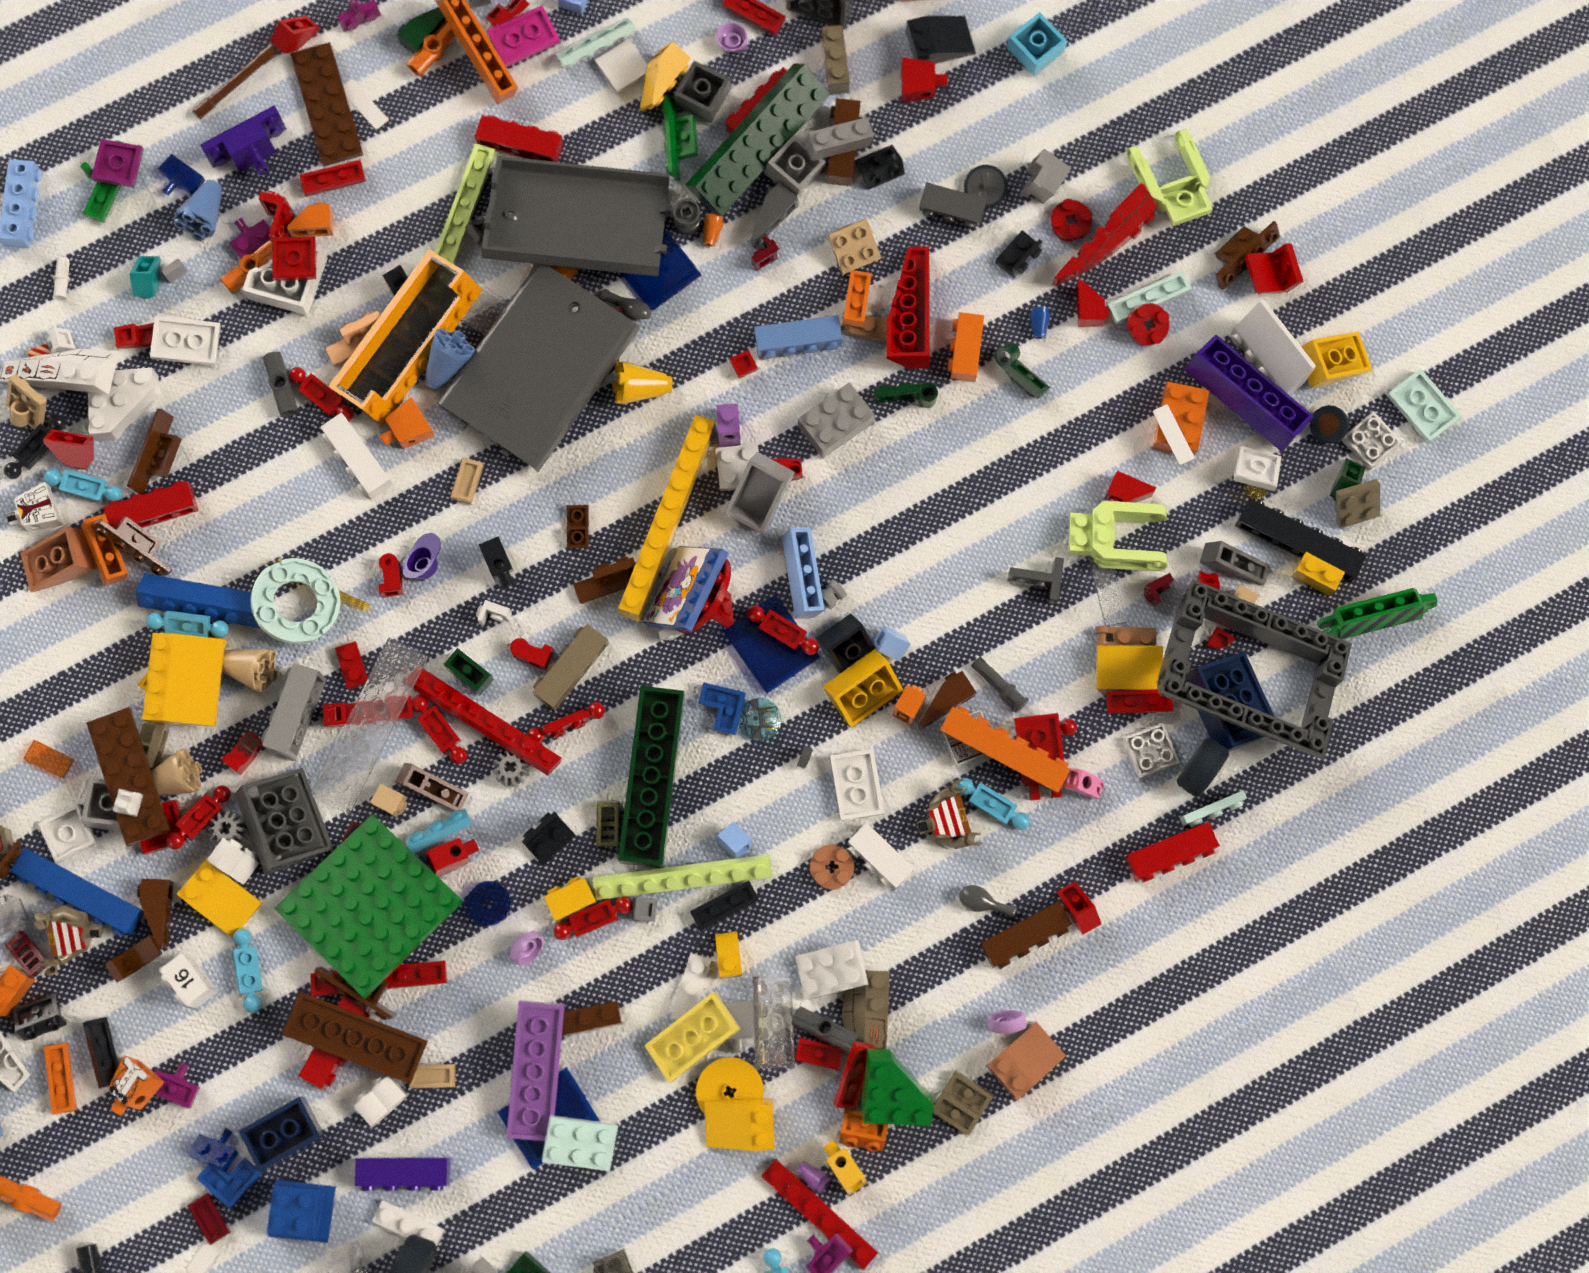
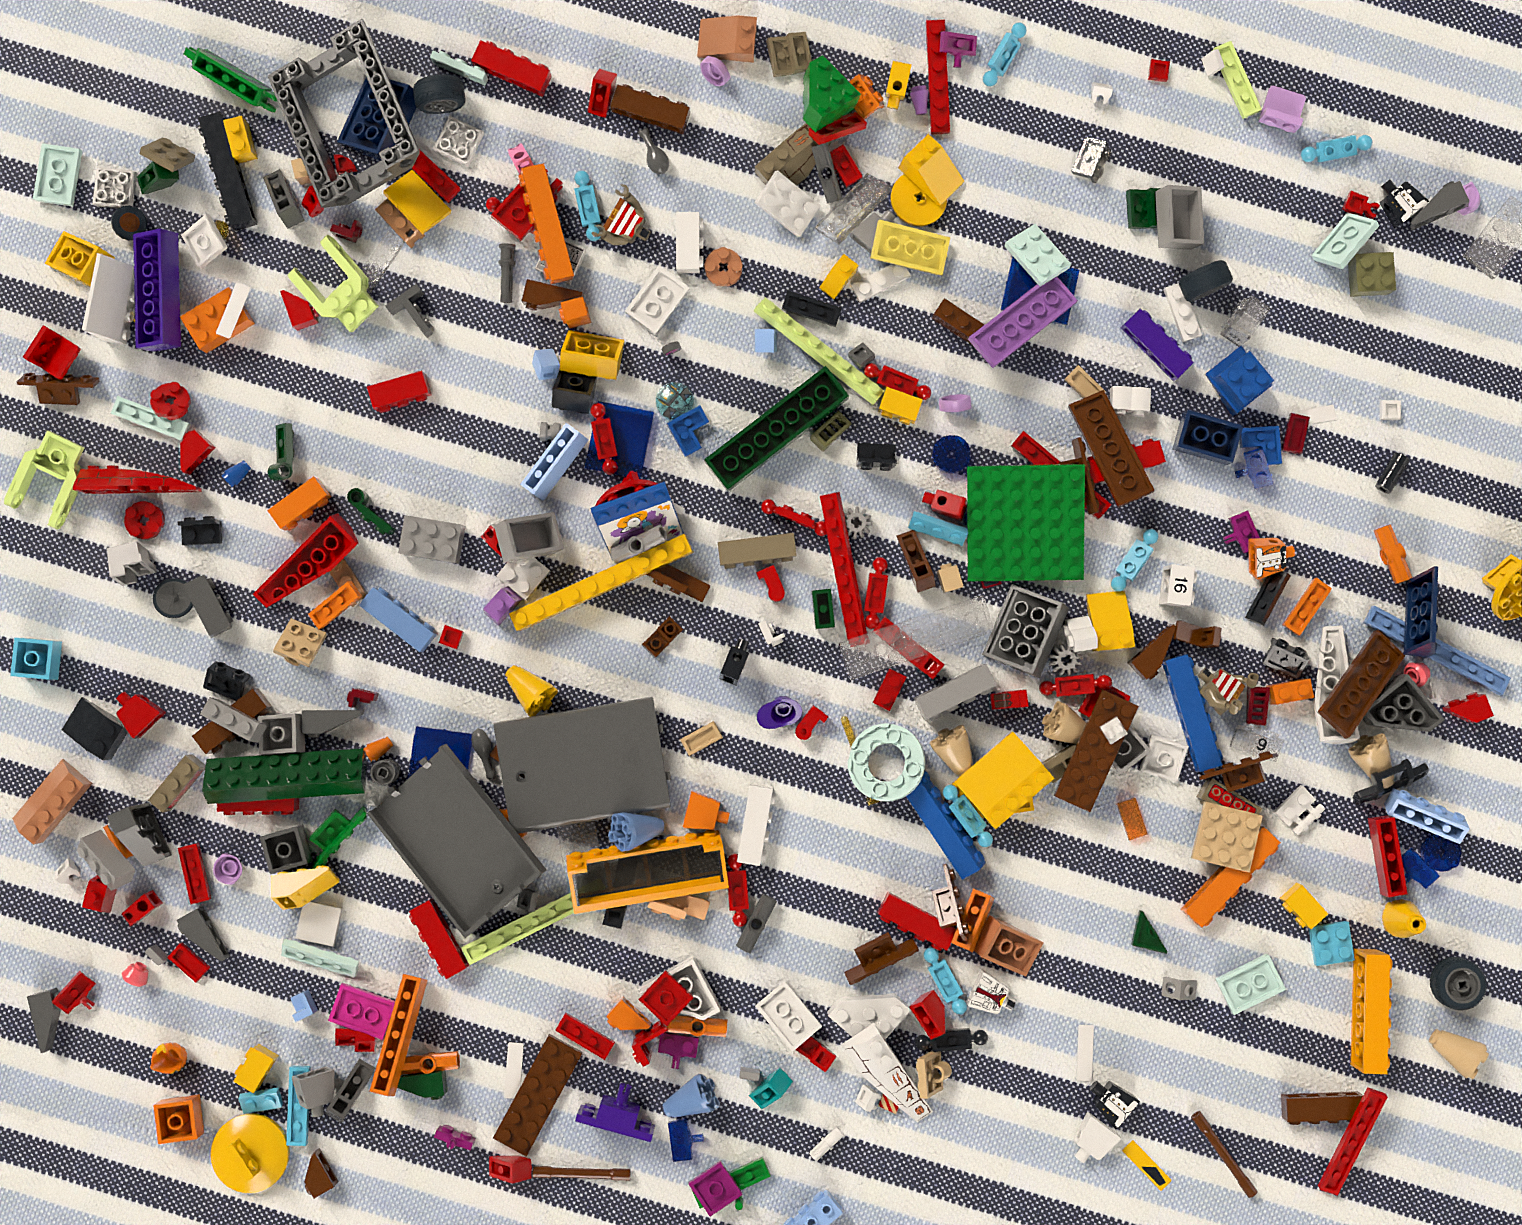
camera: 130 degrees left, 10 degrees up
(662, 580) = (648, 540): none -> light grey piece
(982, 506) = (399, 391): none -> red brick

